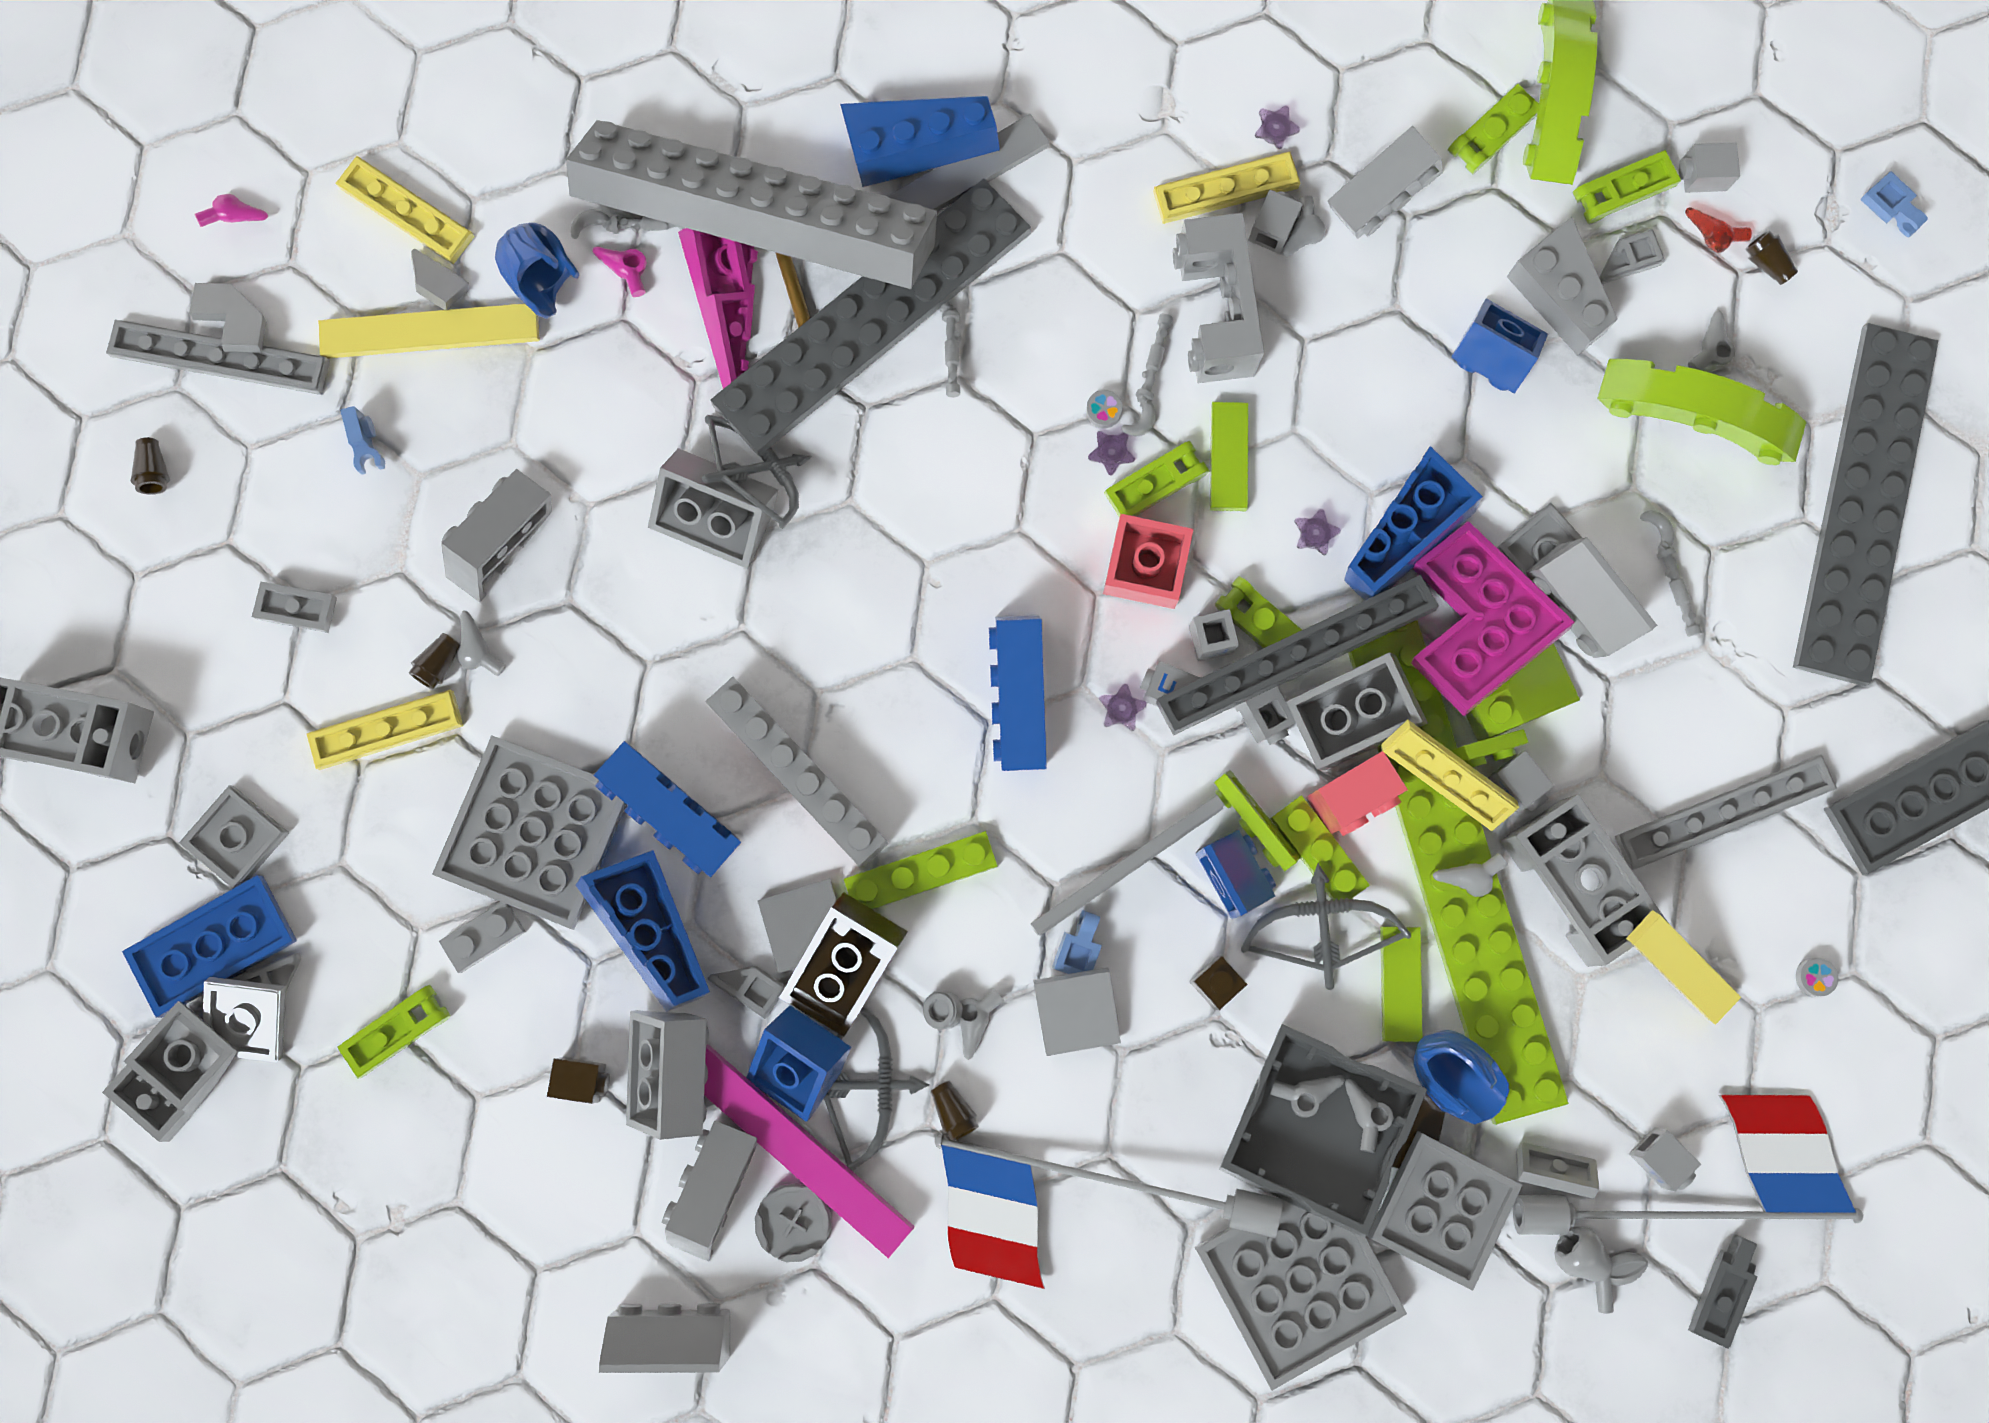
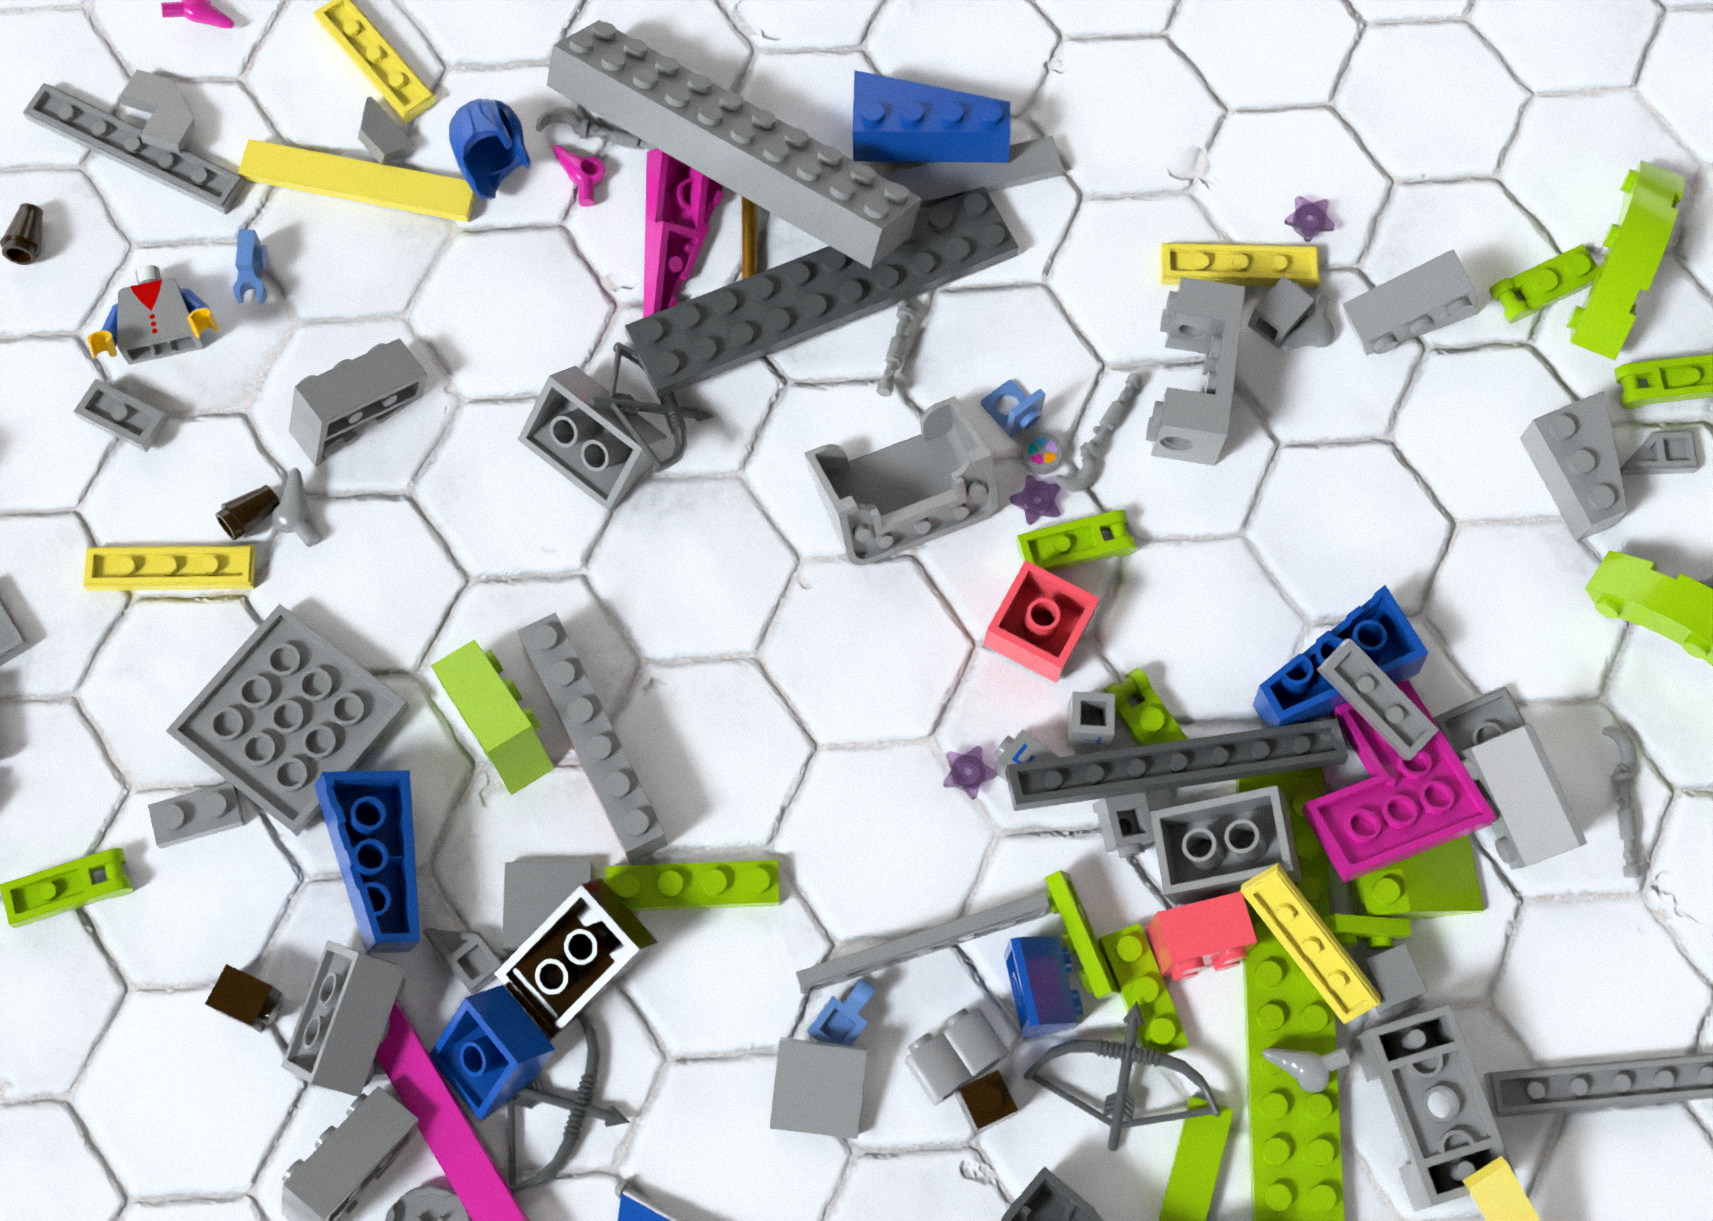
camera: 15 degrees right, 10 degrees down
(292, 513) = (153, 320): none -> light grey torso
(667, 809) = (439, 732): blue wedge -> none
(706, 778) = (494, 715): none -> lime wedge
(942, 1010) = (669, 1042): light grey tile -> none
(953, 1111) = (646, 1160): dark brown cone -> none
(975, 1020) = (702, 1063): light grey animal -> none
(999, 473) = (909, 488): none -> light grey windscreen
(1020, 693) = (859, 719): blue wedge -> none
(1080, 381) = (1022, 416): none -> medium blue bracket
(1182, 951) = (955, 1055): none -> light grey brick
(1229, 456) = (1163, 540): lime tile -> none
(1308, 539) = (1235, 656): clear purple plate -> none
(1451, 550) = (1377, 699): none -> light grey plate
(1500, 346) = (1490, 506): slope -> none

